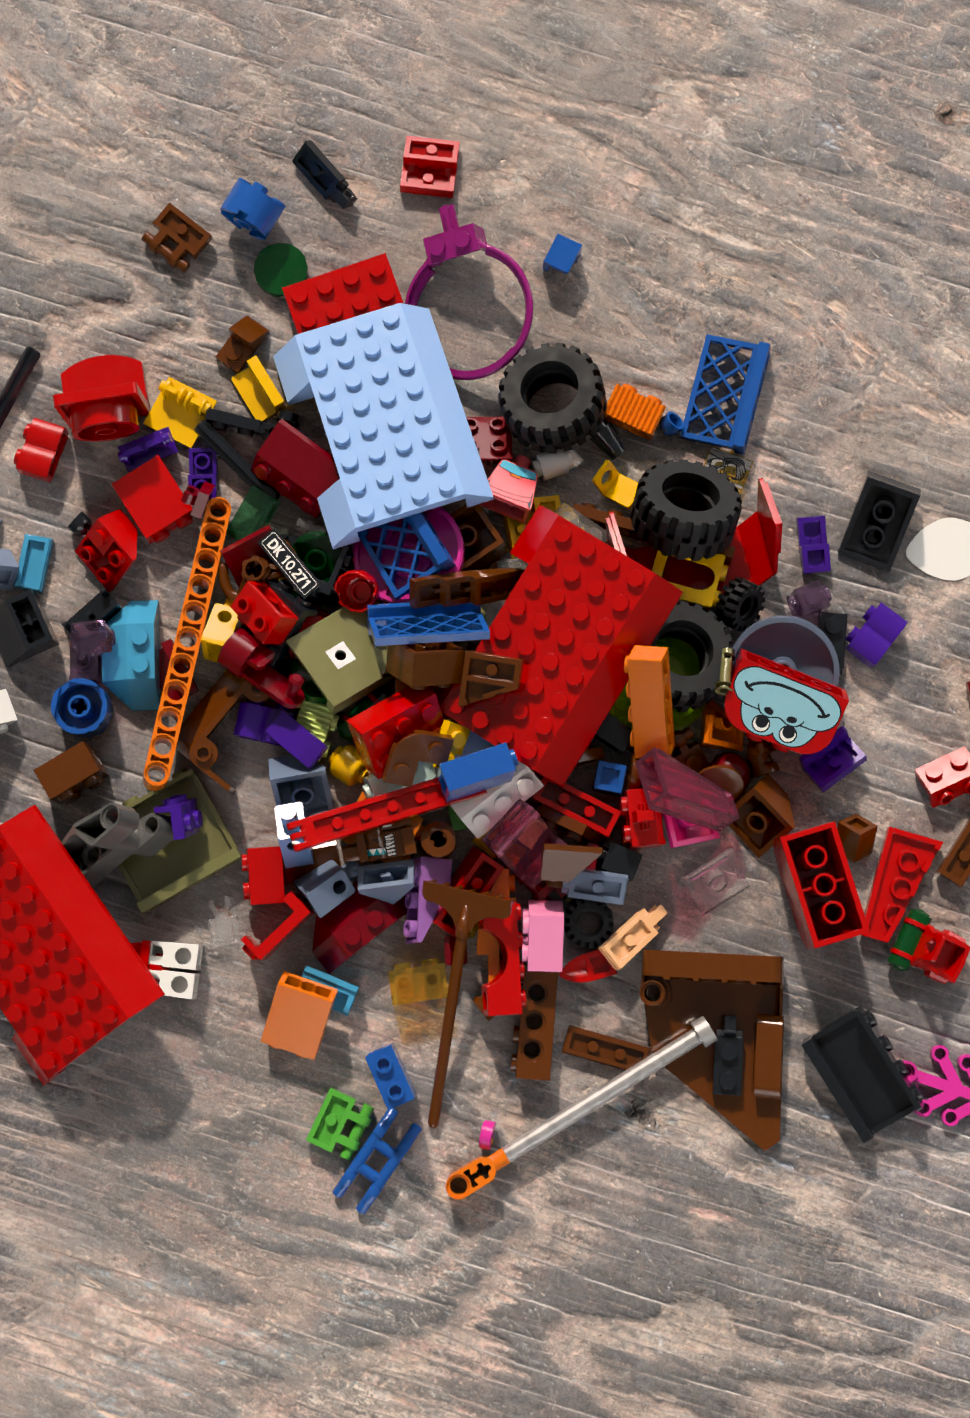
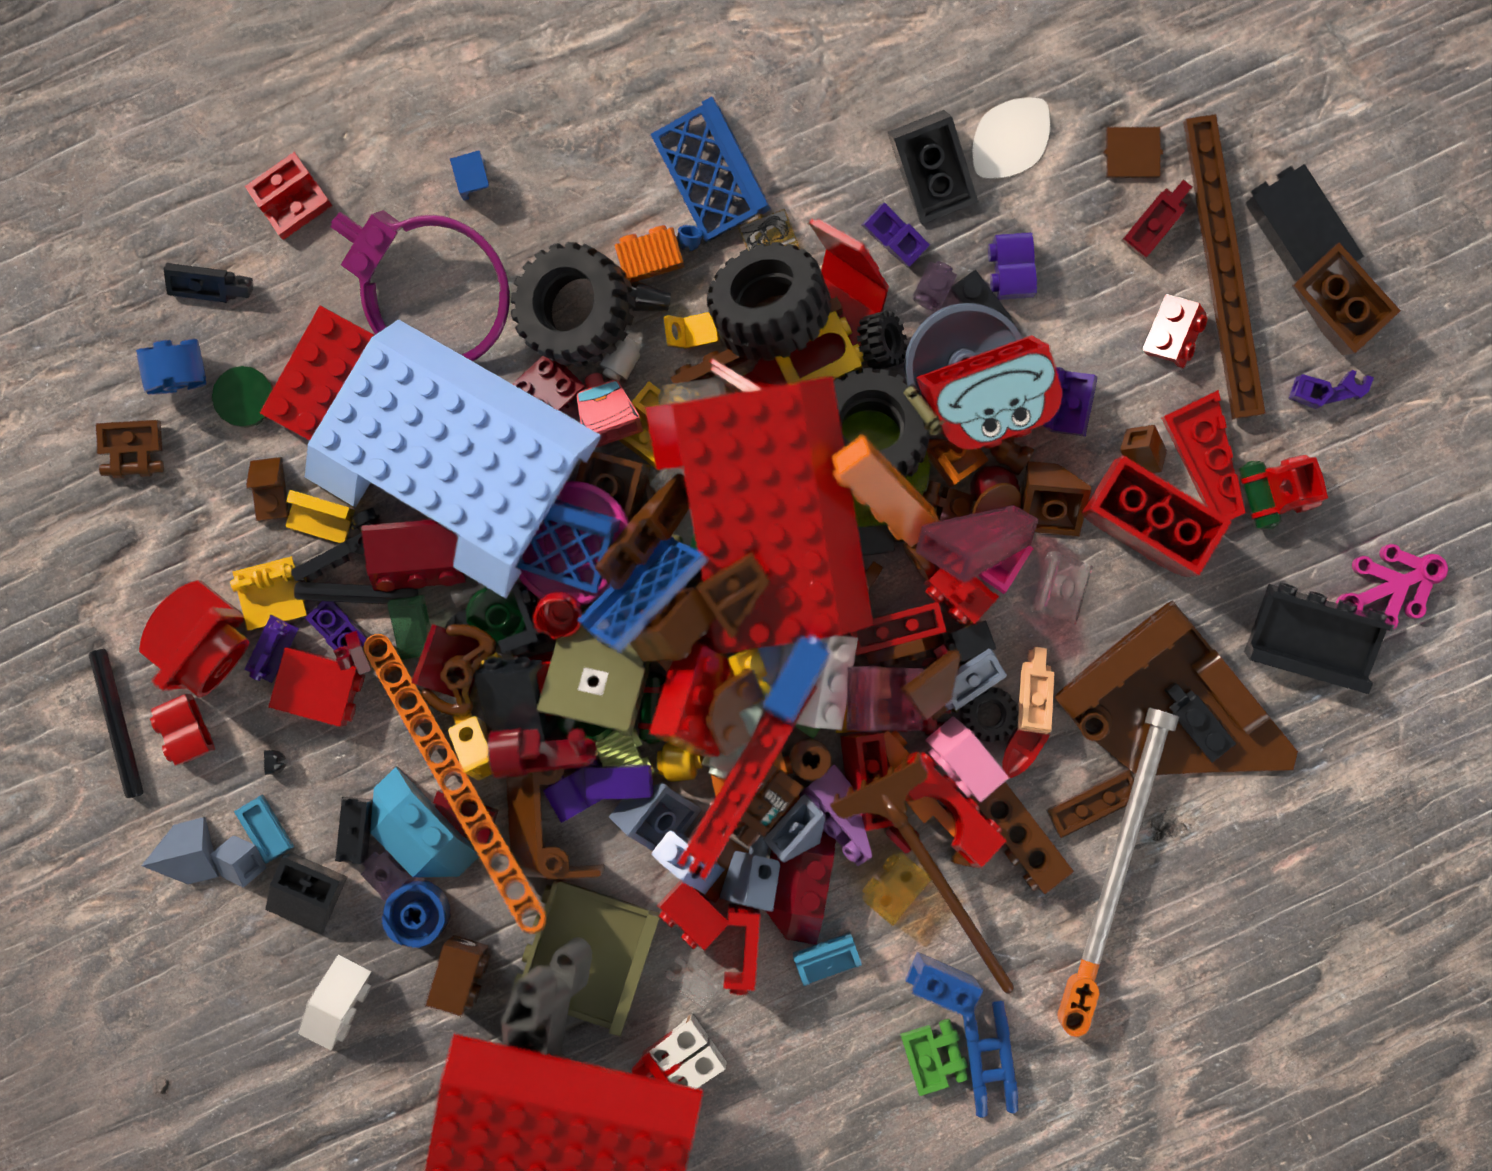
camera: 45 degrees left, 5 degrees up
(91, 638) = (371, 851): clear purple brick -> none
(109, 548) = (316, 760): red slope -> none
(184, 813) = (581, 926): dark purple bracket -> none
(264, 613) = (497, 703): red brick -> none
(289, 563) = (480, 642): black sticker -> none
(299, 1015) = (824, 1002): orange brick -> none
(487, 1134) = (1060, 959): dark pink tile -> none
(609, 778) = (901, 581): blue panel -> none

